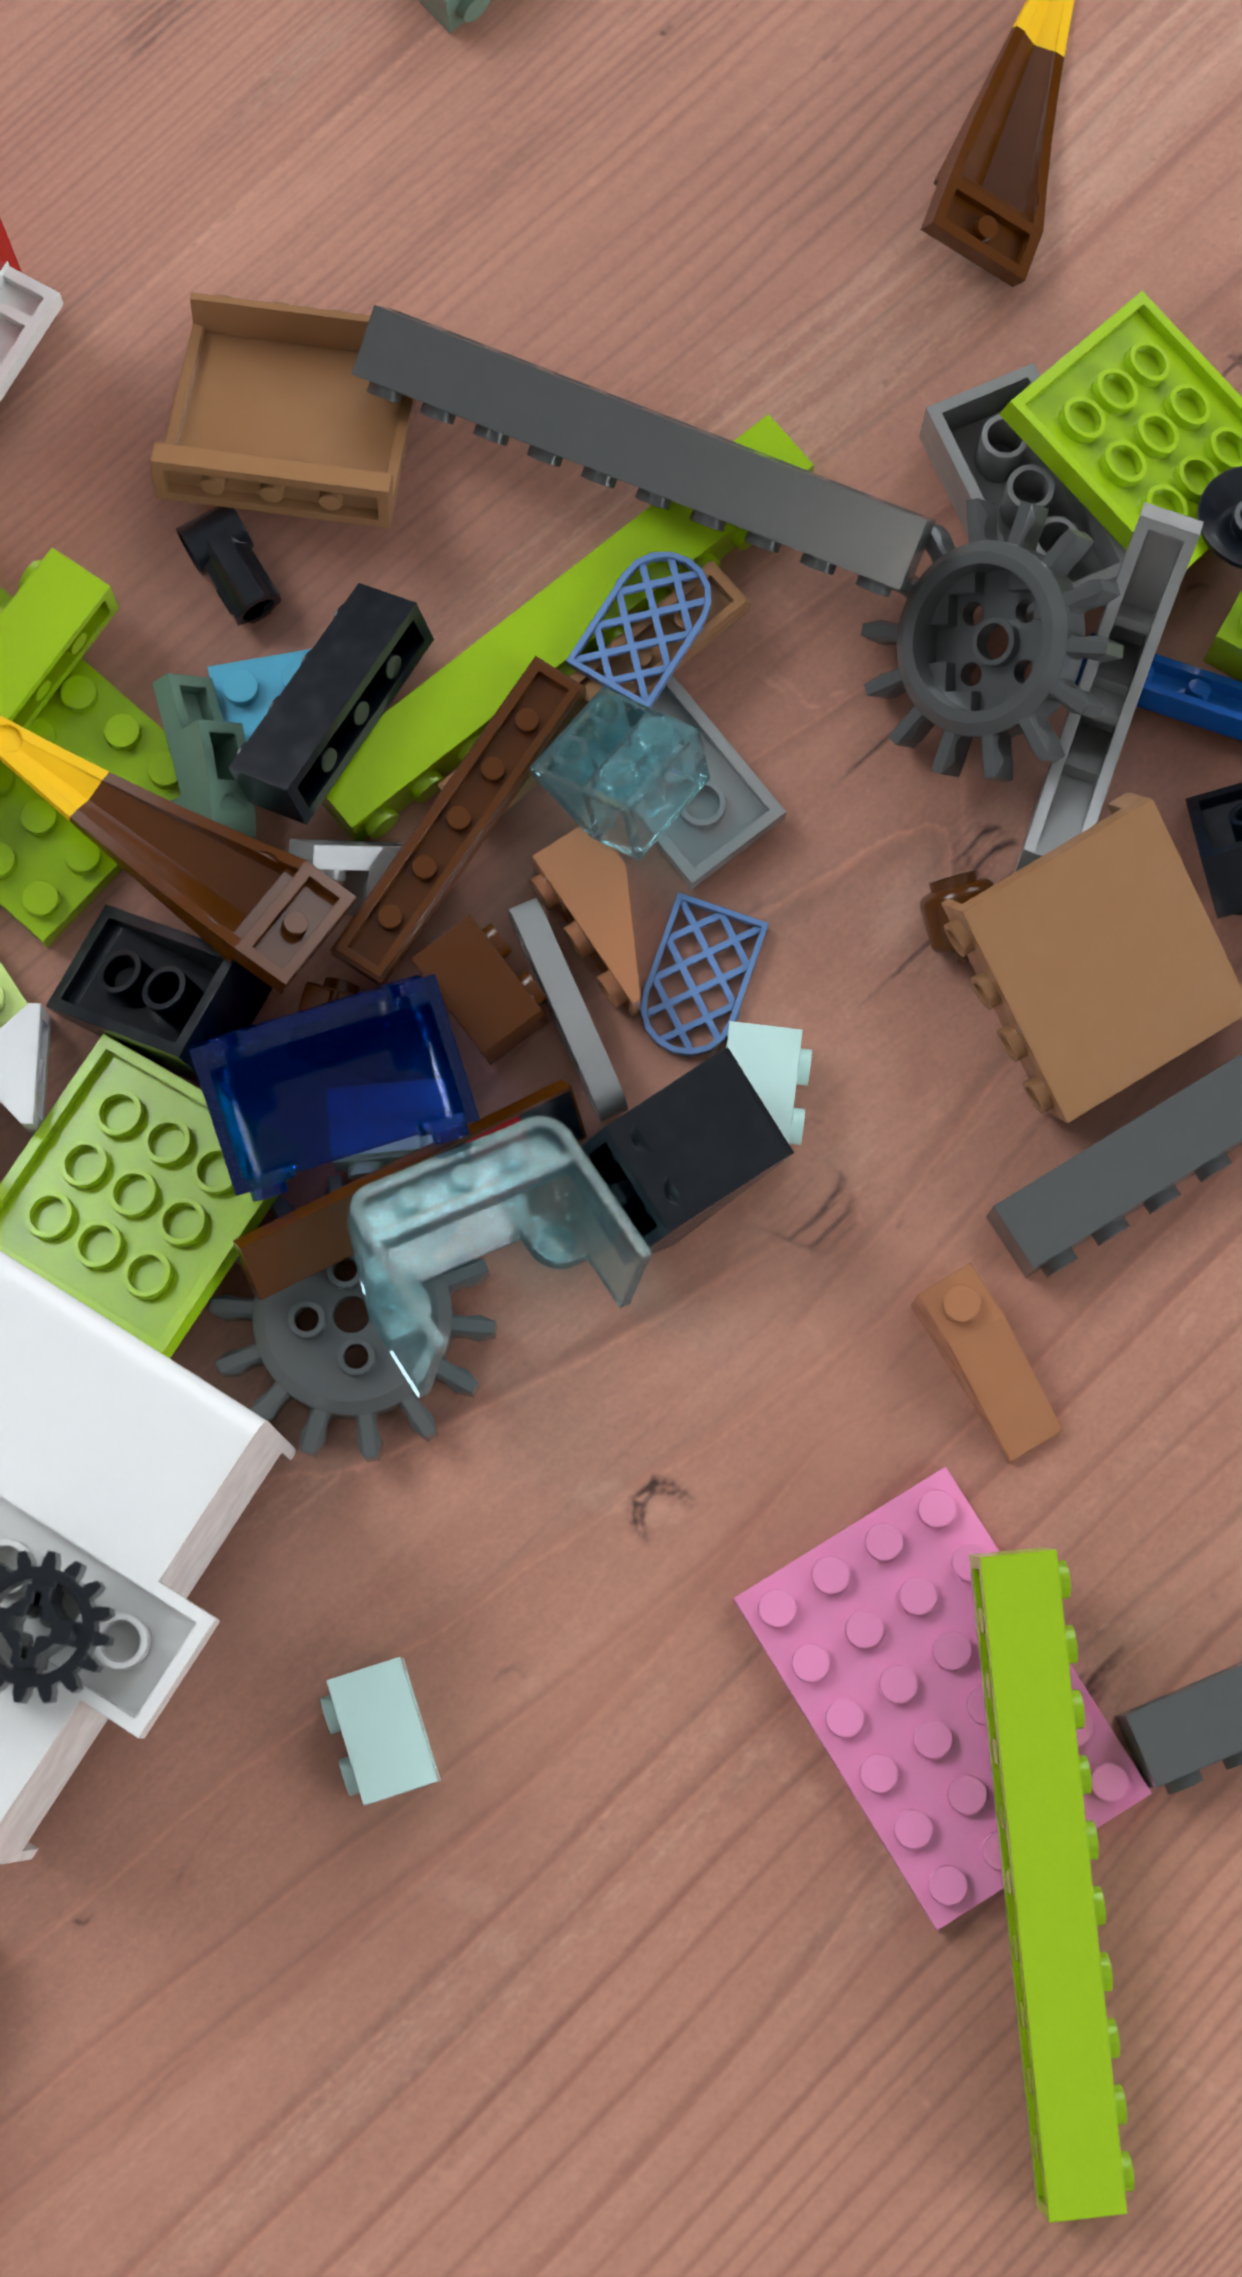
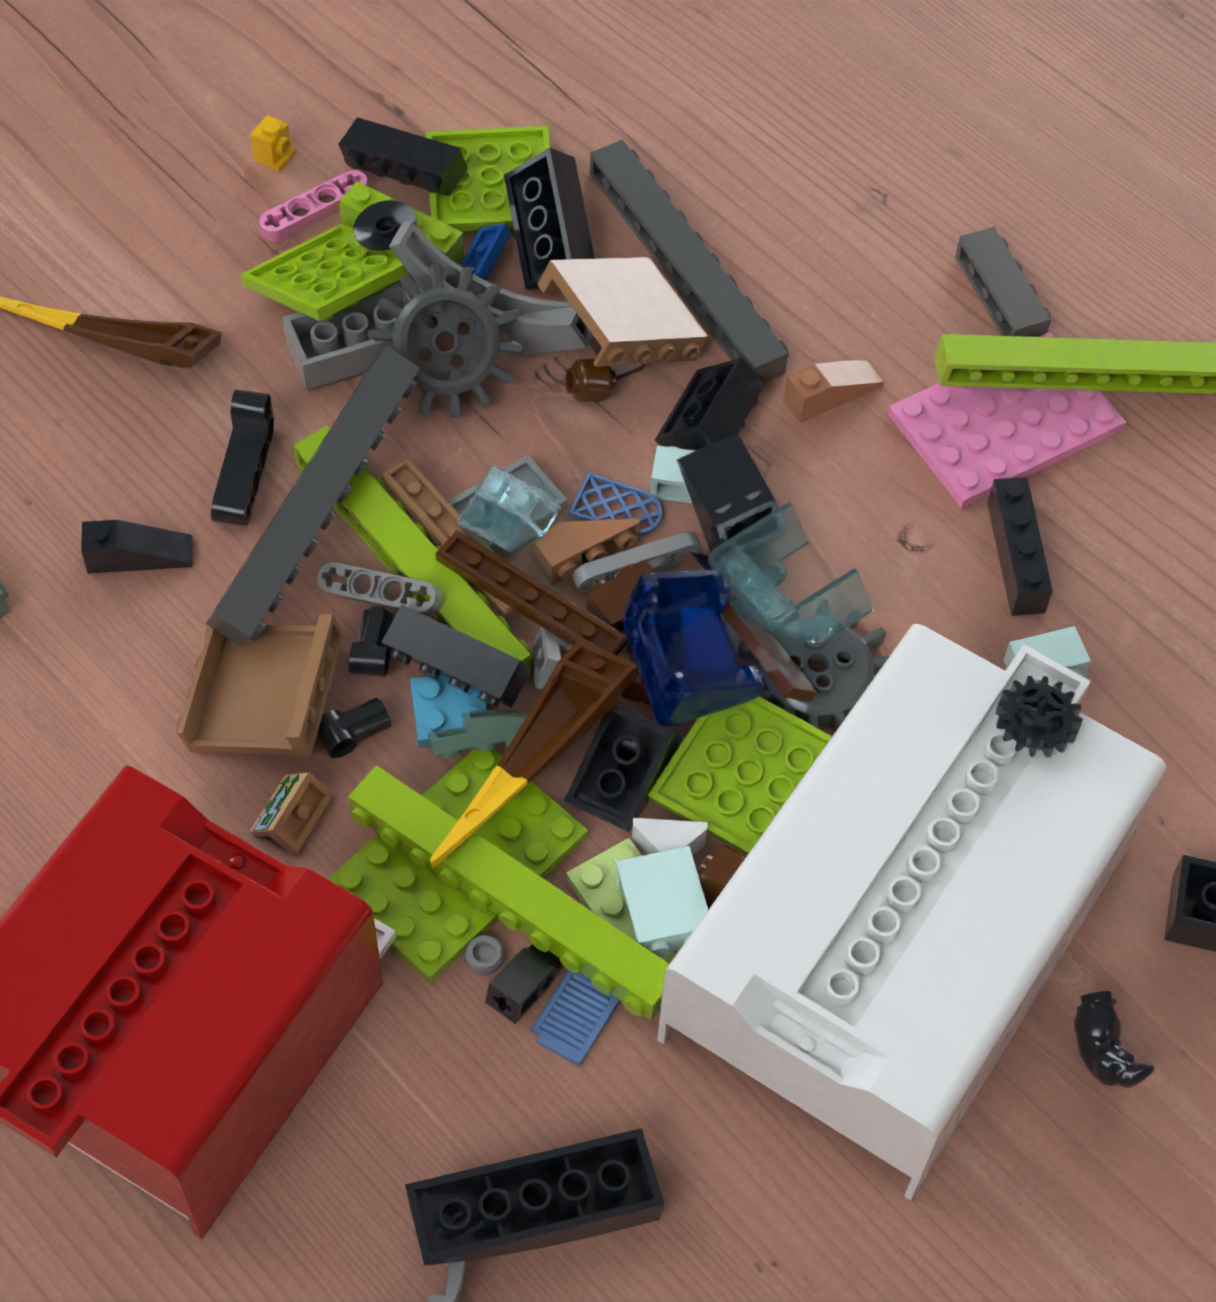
camera: 90 degrees left, 20 degrees down
(75, 486) = (292, 810): none -> nougat panel
(407, 577) = (369, 654): none -> black piece
(471, 578) = (379, 588): none -> light grey beam
(565, 195) = (132, 547): none -> black slope
(576, 660) = (423, 482): medium blue window -> none
(628, 1694) = (1019, 546): none -> black brick
(745, 344) = (244, 458): none -> black beam
(907, 1134) = (712, 406): none -> black slope

